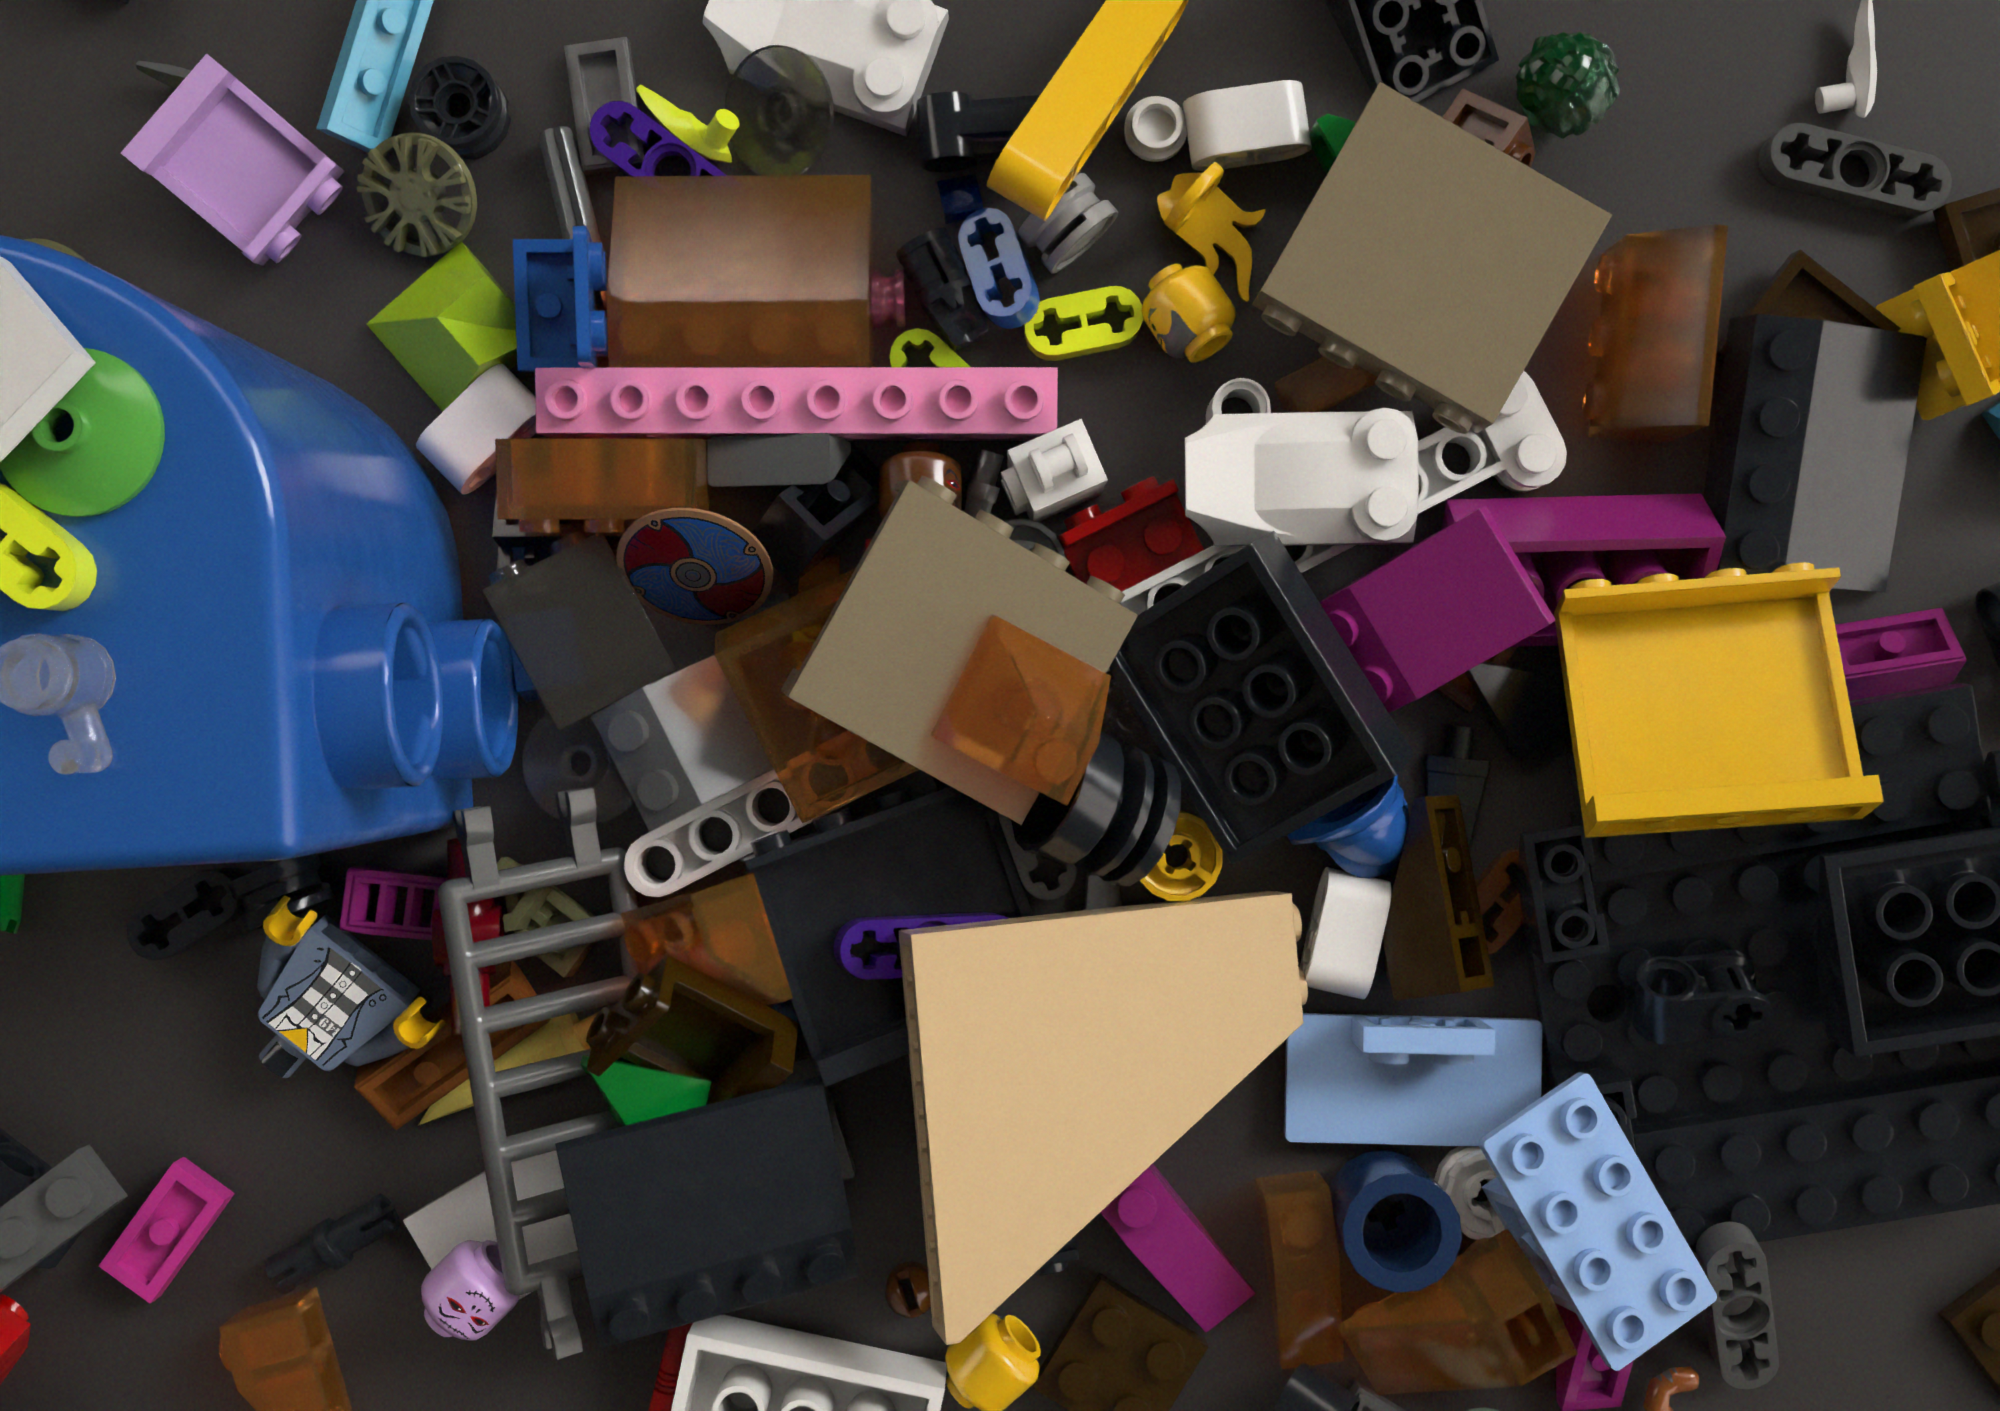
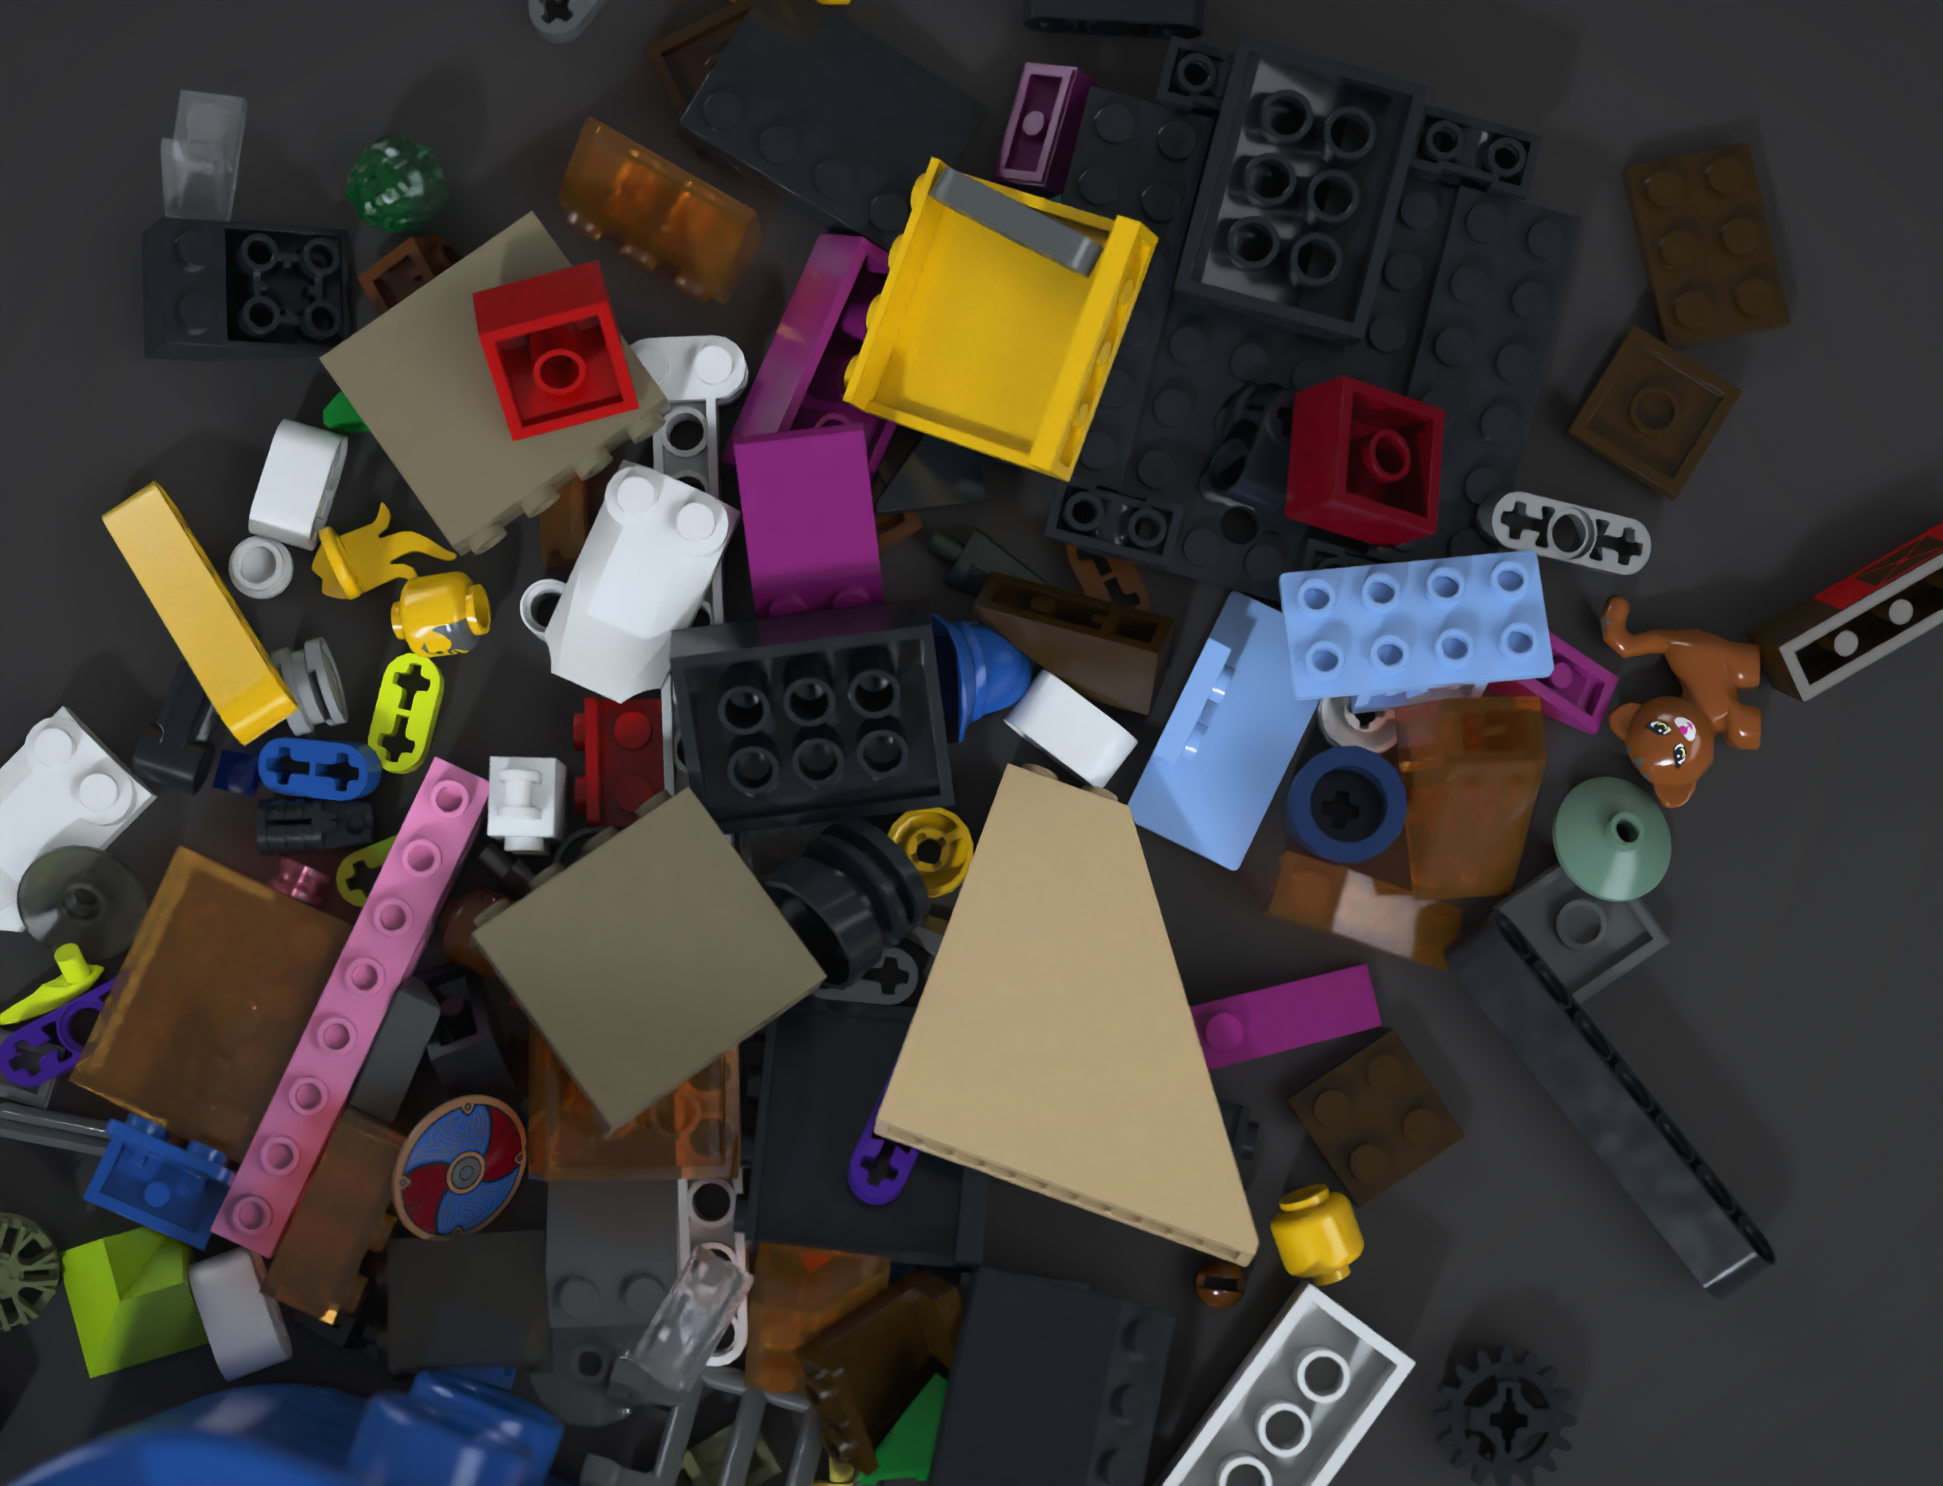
camera: 65 degrees left, 5 degrees down
(654, 842) = (692, 1319): none -> clear panel
(1026, 710) = (723, 924): clear orange slope -> none
(1493, 298) = (554, 350): none -> red slope
(1734, 1108) = (1365, 462): none -> dark red brick
(1817, 678) = (1016, 222): none -> dark grey beam
(1883, 1334) = (1653, 413): none -> dark brown plate

